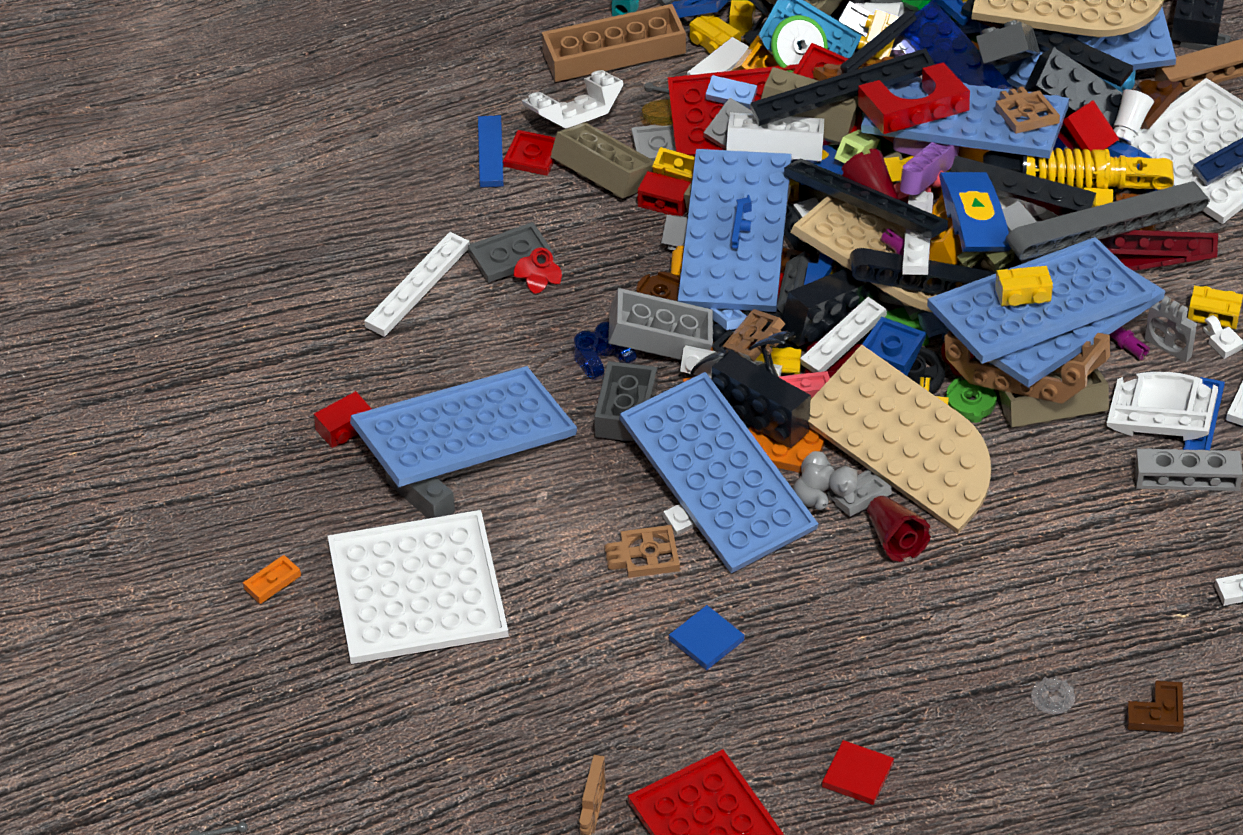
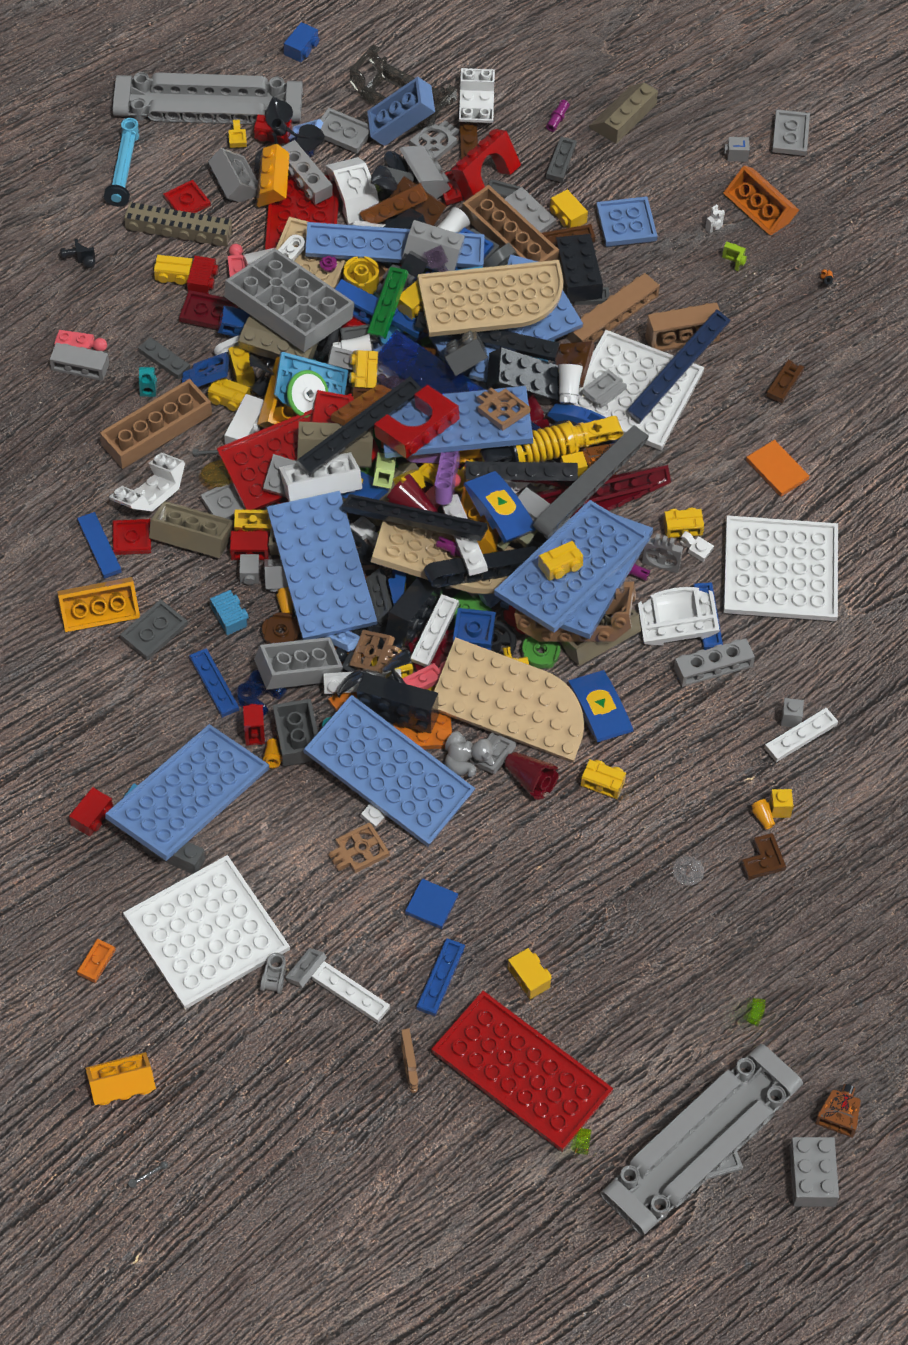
camera: 25 degrees left, 10 degrees up
(235, 715) = (120, 1079): none -> light orange slope
(416, 284) = (94, 678): white plate -> none
(458, 209) = (98, 604): none -> light orange slope
(472, 657) = (274, 976): none -> light grey piece
(517, 660) = (306, 967): none -> light grey plate
(538, 274) = (182, 642): red plate -> none
(555, 327) = (214, 682): none -> blue tile
(559, 704) = (350, 992): none -> white plate
(577, 378) = (254, 724): none -> red brick
(585, 419) = (272, 753): none -> light orange cone
(607, 256) = (228, 612): none -> dark azure brick
(652, 218) = (249, 569): none -> light grey brick
(680, 722) = (440, 977): none -> blue tile
(722, 89) = (268, 446): light blue plate -> none
(743, 206) = (327, 563): blue piece -> none
(793, 750) = (529, 973): none -> yellow brick
(858, 772) = (579, 974): red tile -> none
(879, 42) = (370, 379): black axle -> none
(986, 559) = (603, 778): none -> yellow brick
(1019, 478) = (601, 706): none -> blue slope
(1090, 128) = (547, 404): red tile -> none
(1175, 136) = (604, 388): none -> light grey plate
(1180, 657) = (763, 813): none -> light orange cone
(1208, 651) = (781, 803): none -> yellow brick

